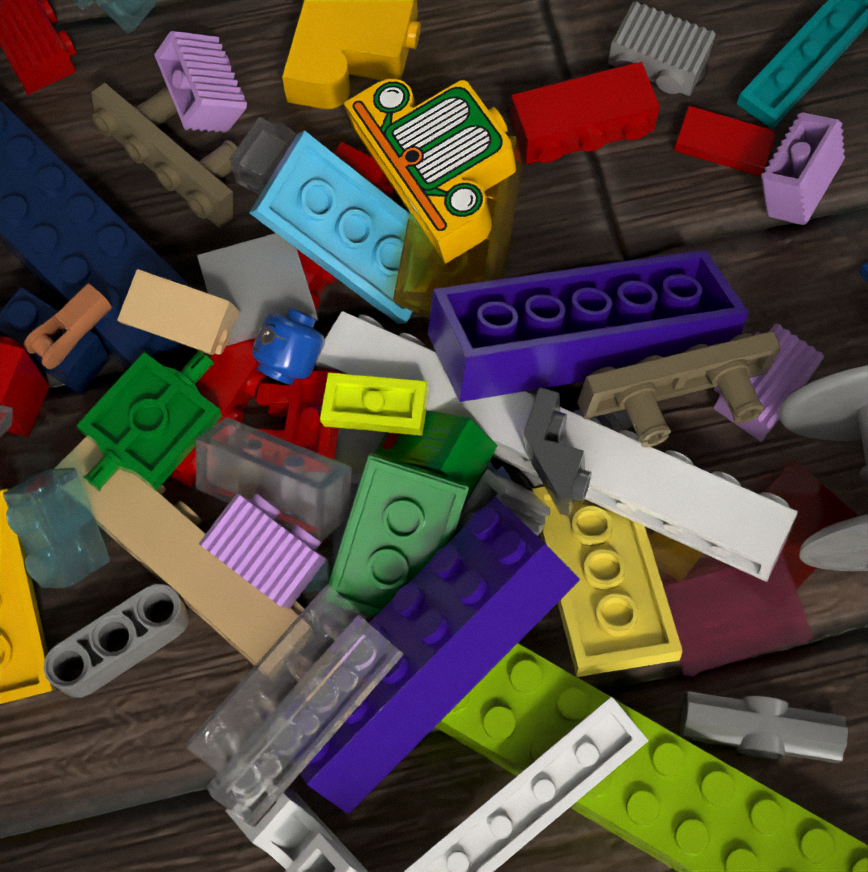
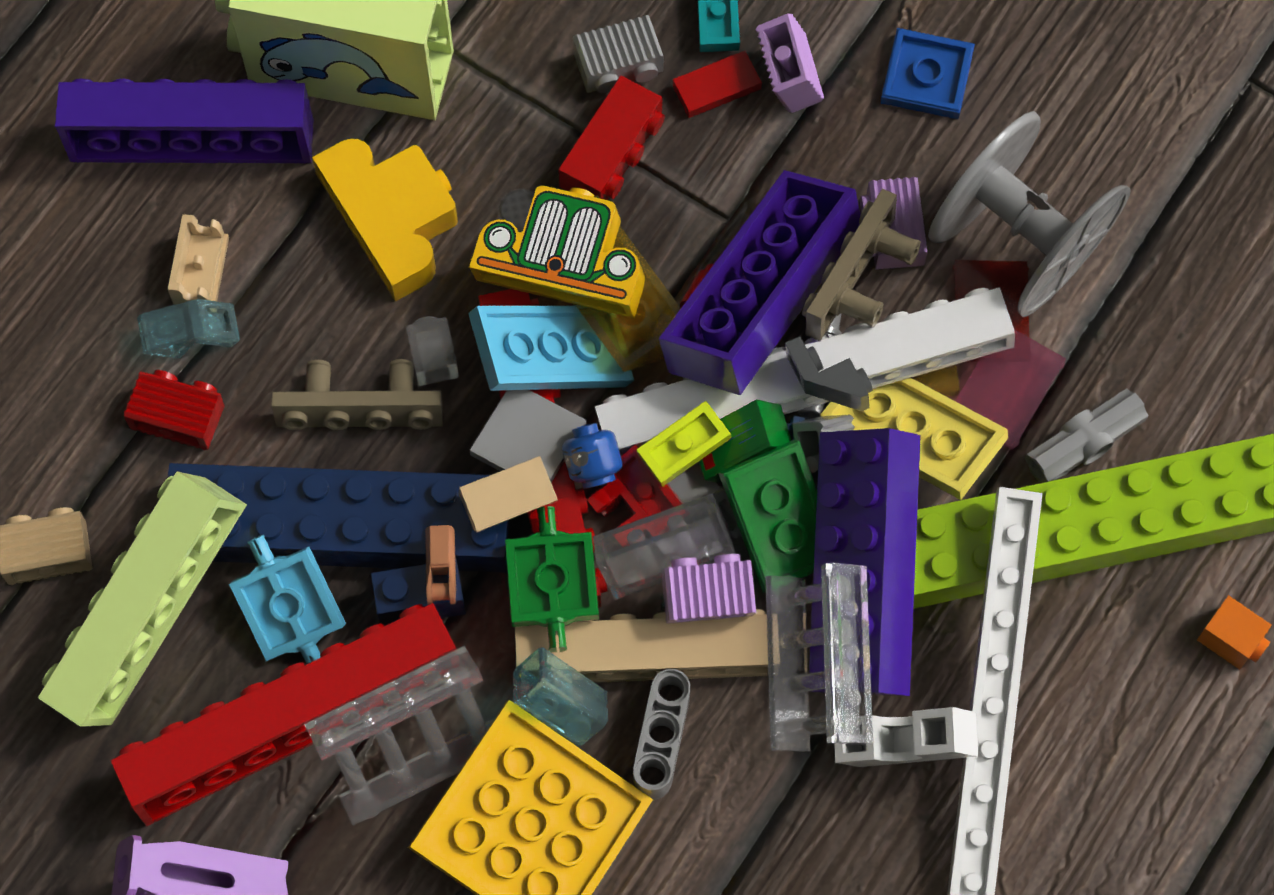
camera: 45 degrees left, 0 degrees up
(200, 81) = (333, 336): lavender brick -> none

